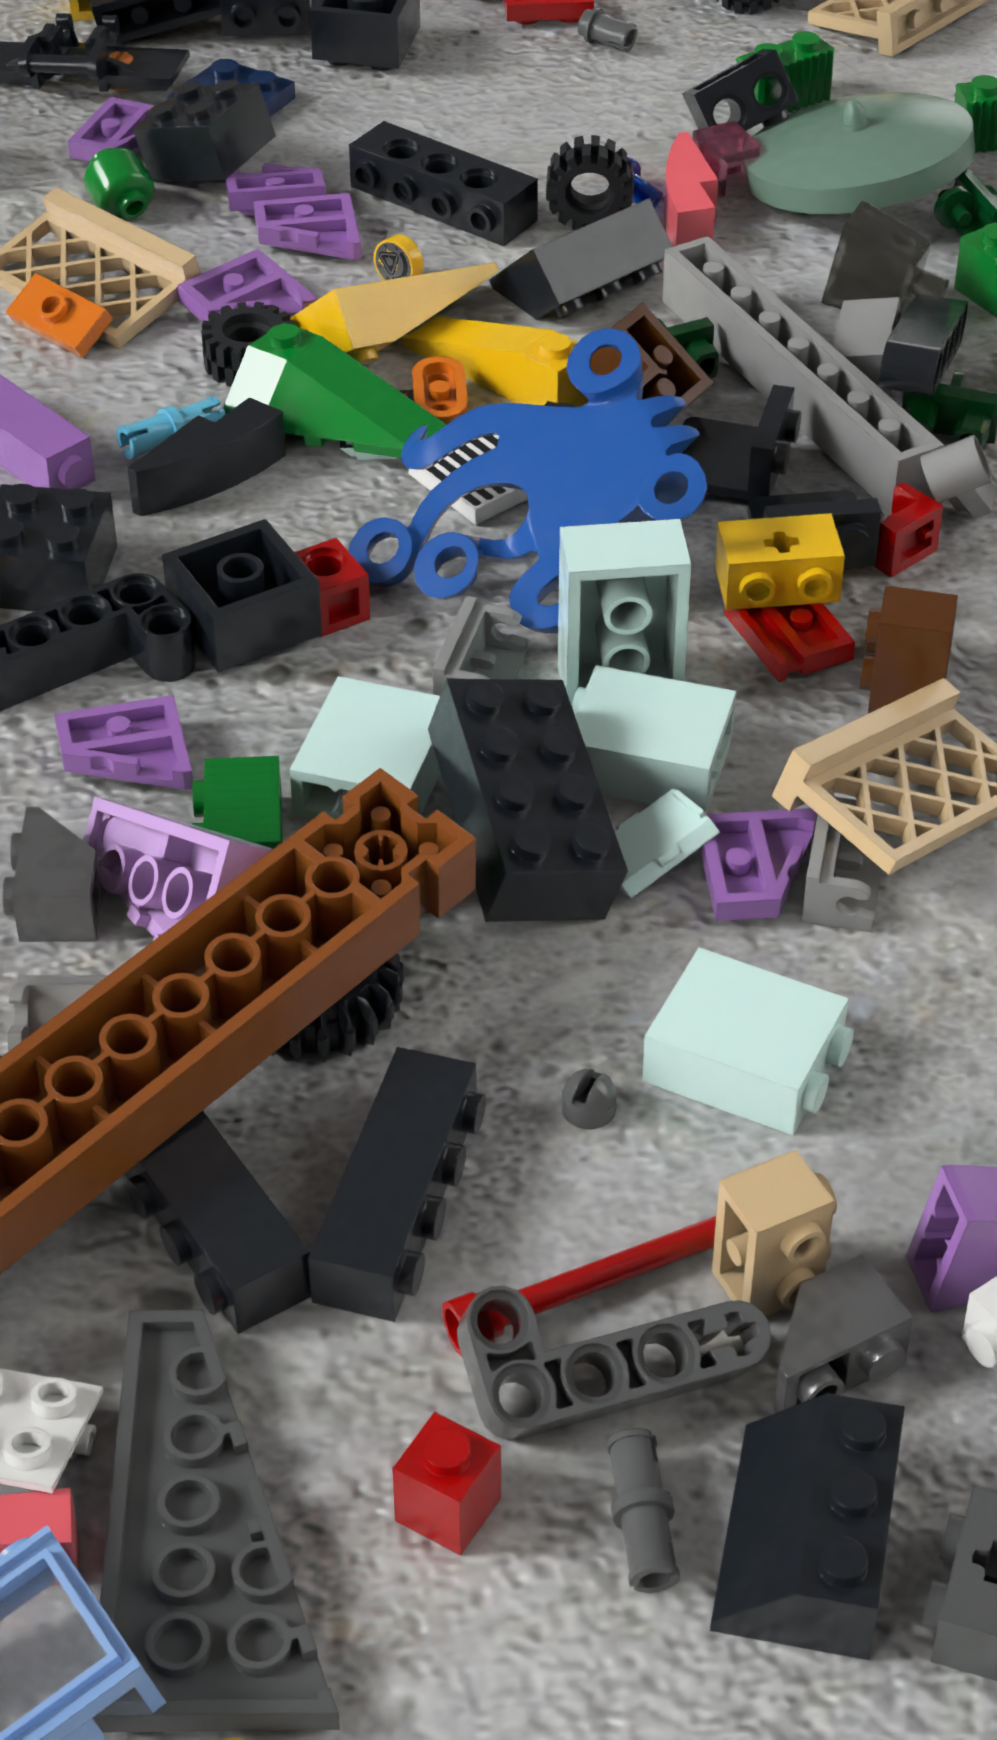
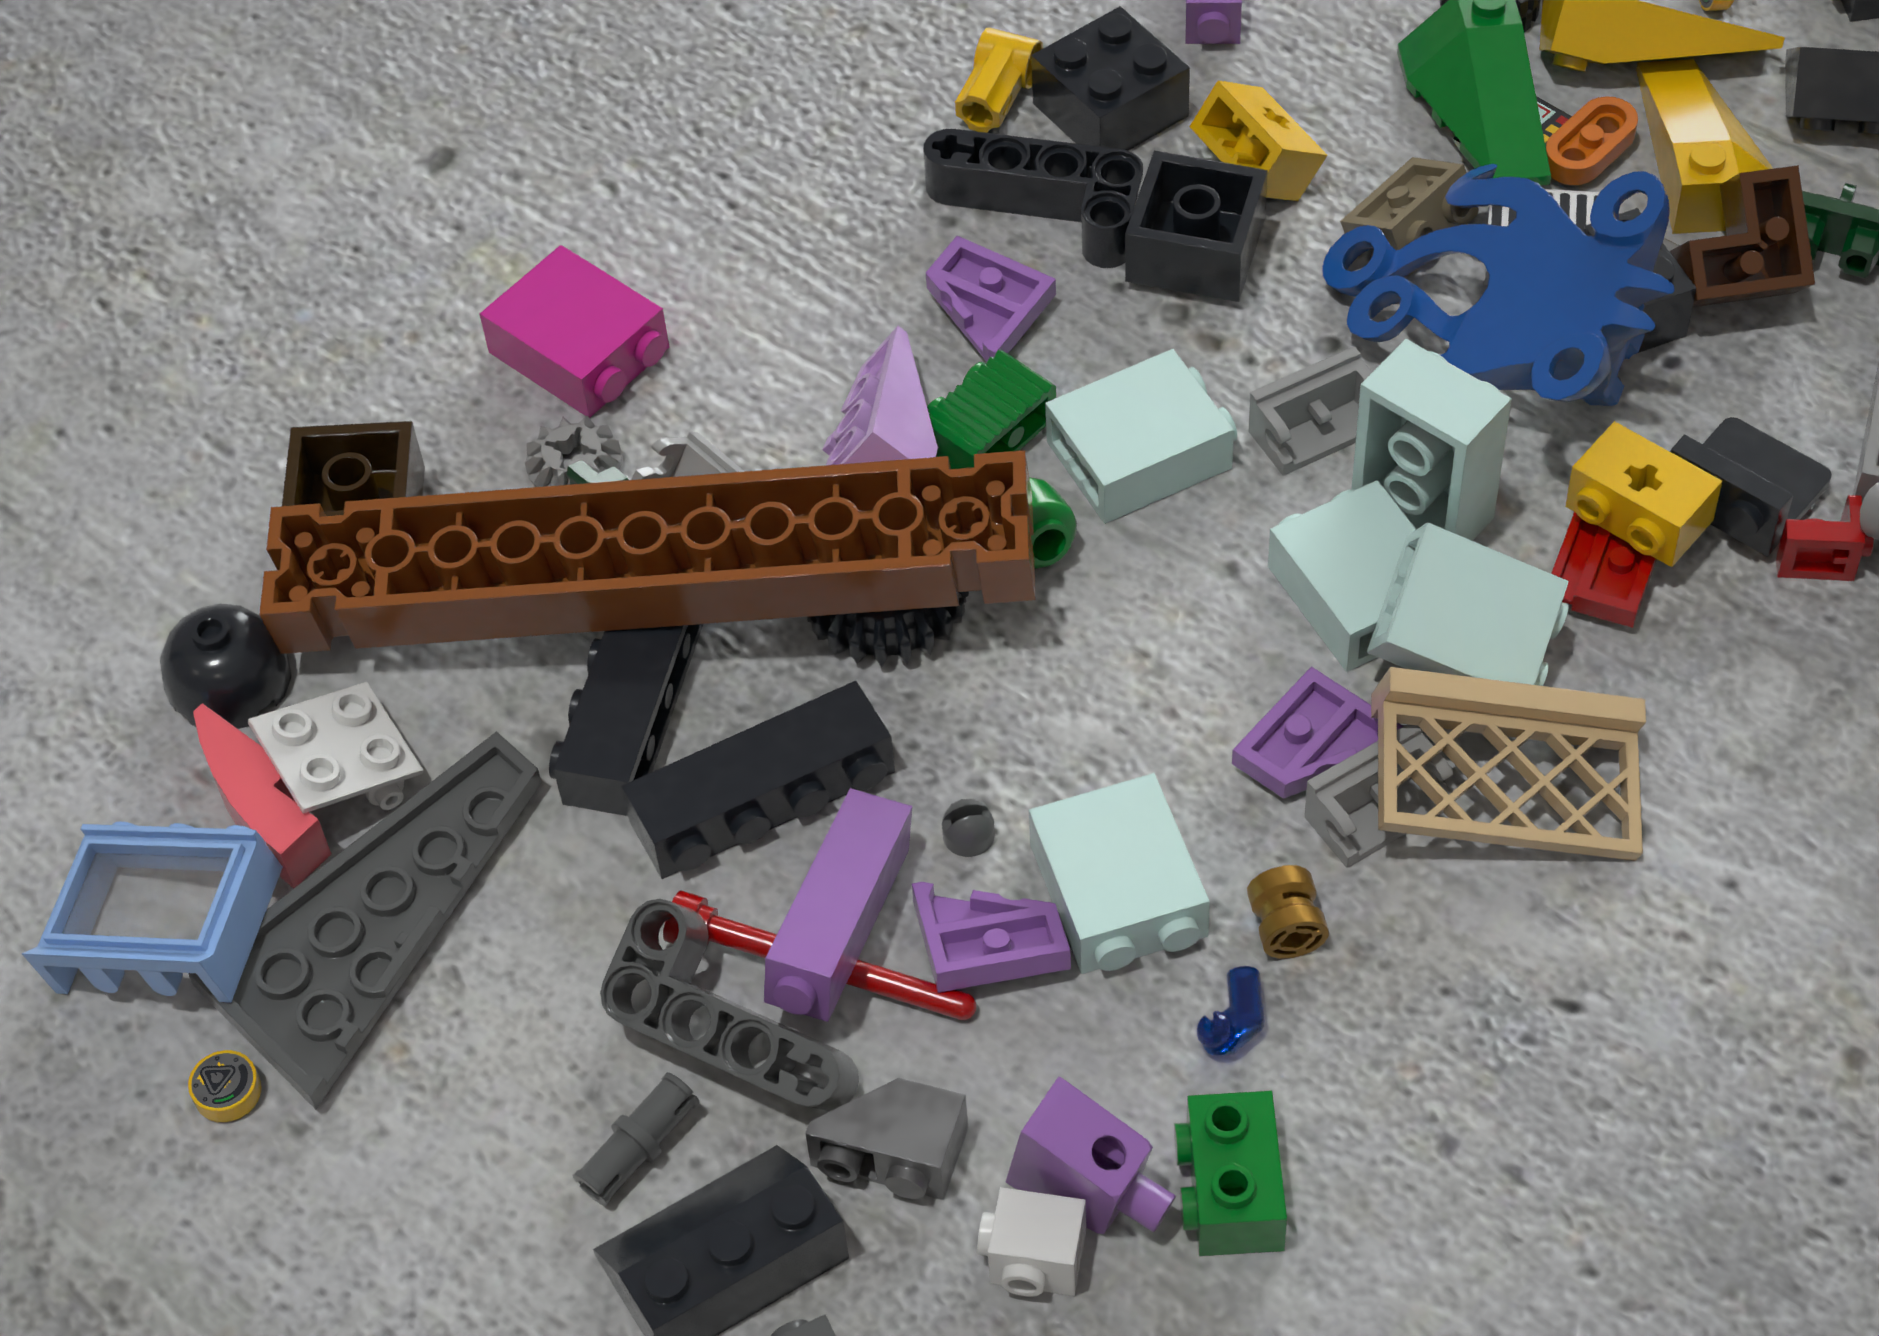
camera: 50 degrees right, 10 degrees up
(54, 882) = (806, 374): flat silver slope -> none
(150, 432) = (1338, 32): medium azure pin -> none
(196, 513) = (1252, 130): none -> yellow brick
(207, 458) = (1332, 80): black slope -> none
(341, 585) = (1280, 263): red brick -> none
(372, 490) = (1412, 203): none -> dark tan bracket
(447, 1483) = (536, 1012): red brick -> none
(529, 798) = (1176, 553): black brick -> none
(591, 1210) = (837, 905): none -> medium lavender brick
(661, 838) = (1254, 663): light aqua piece -> none
(704, 1149) = (988, 938): none -> medium lavender wing
(744, 458) = (1774, 364): black bracket -> none
(767, 697) = (1468, 611): none -> light aqua brick
(772, 1231) = (924, 1025): tan brick -> none
(890, 977) = (1289, 918): none -> pearl gold wheel
(909, 643) = (1666, 652): reddish brown brick -> none
(944, 1070) = (1241, 1020): none -> clear blue arm

